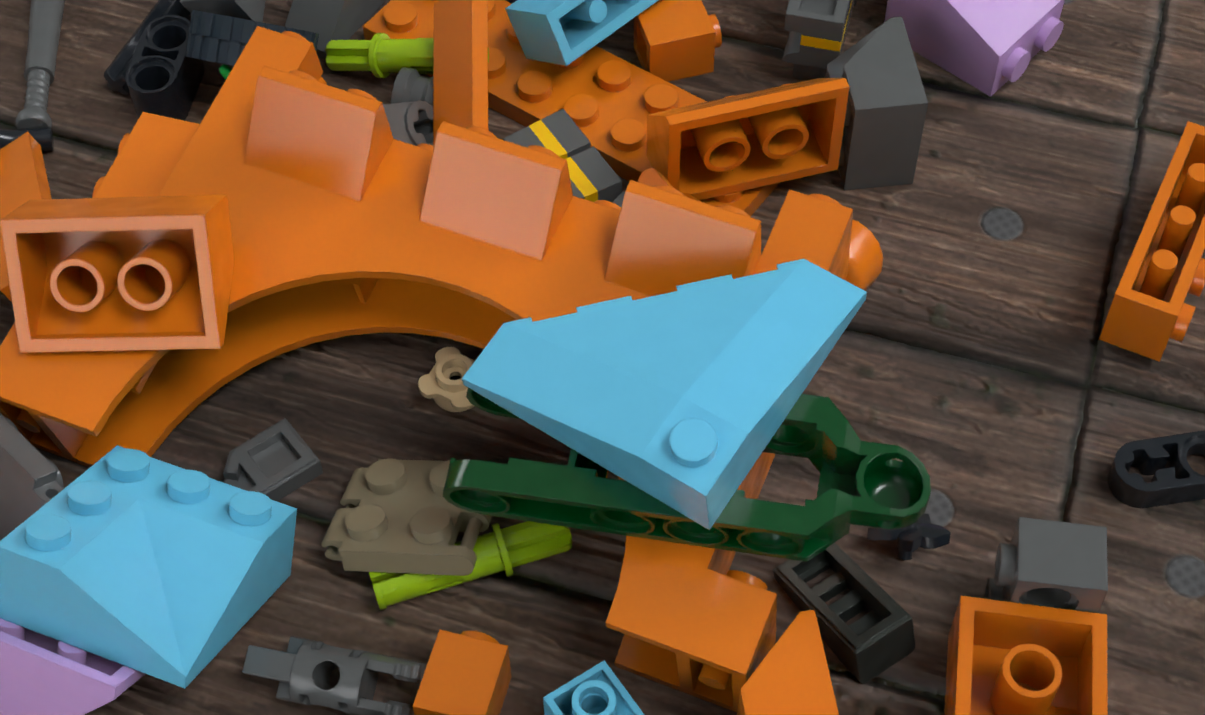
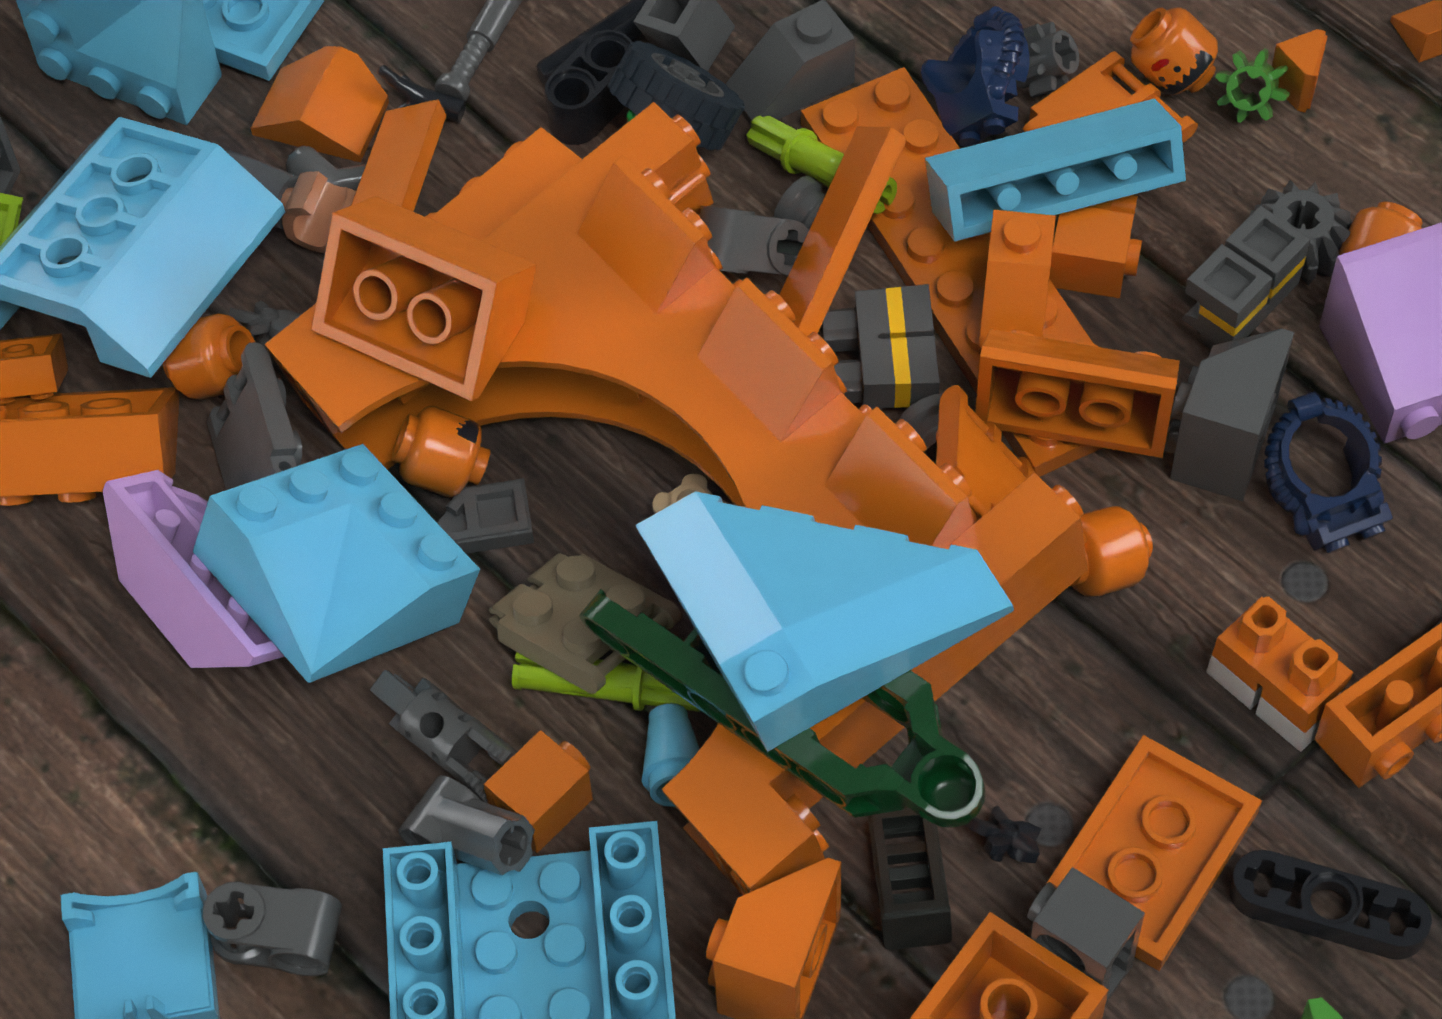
camera: 30 degrees right, 5 degrees up
(194, 424) = (440, 451): none -> orange head
(570, 601) = (668, 748): none -> medium azure cone
(635, 70) = (1017, 273): none -> orange slope
(991, 108) = (1319, 518): none -> dark blue piece
(1032, 463) = (1161, 841): none -> orange plate
(1037, 276) = (1281, 667): none -> orange hips

